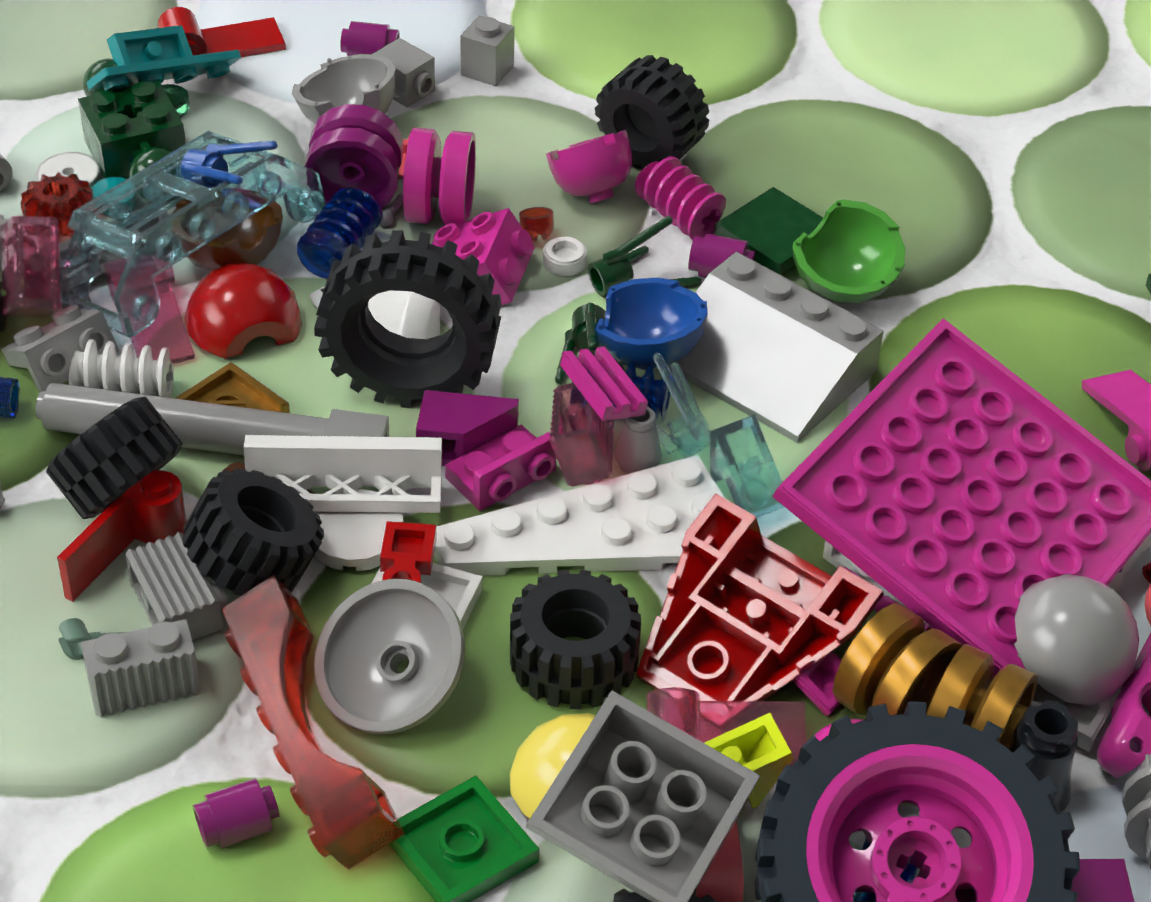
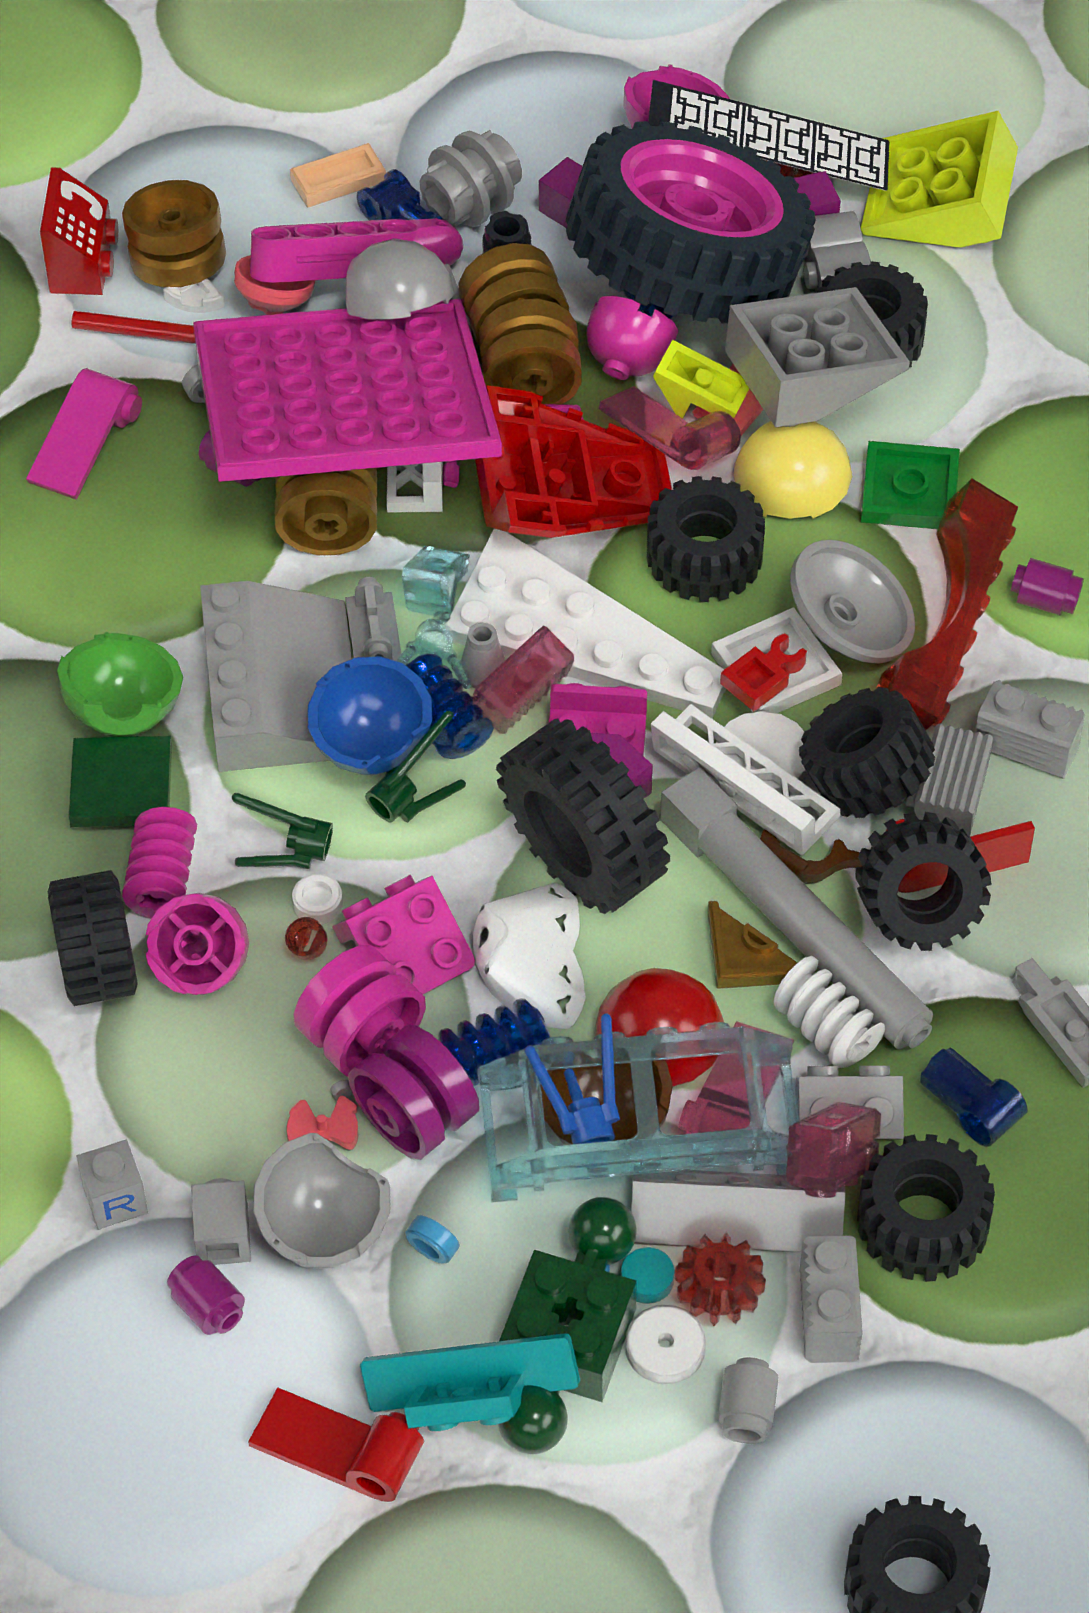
camera: 135 degrees left, 10 degrees up
(73, 634) = (1050, 799): sand green hand -> none
(267, 126) = (432, 1239): none -> dark azure tile
(610, 381) = (494, 634): dark pink tile -> none
(713, 250) = (204, 782): magenta brick -> none
(730, 406) = (373, 621): none -> light grey hinge

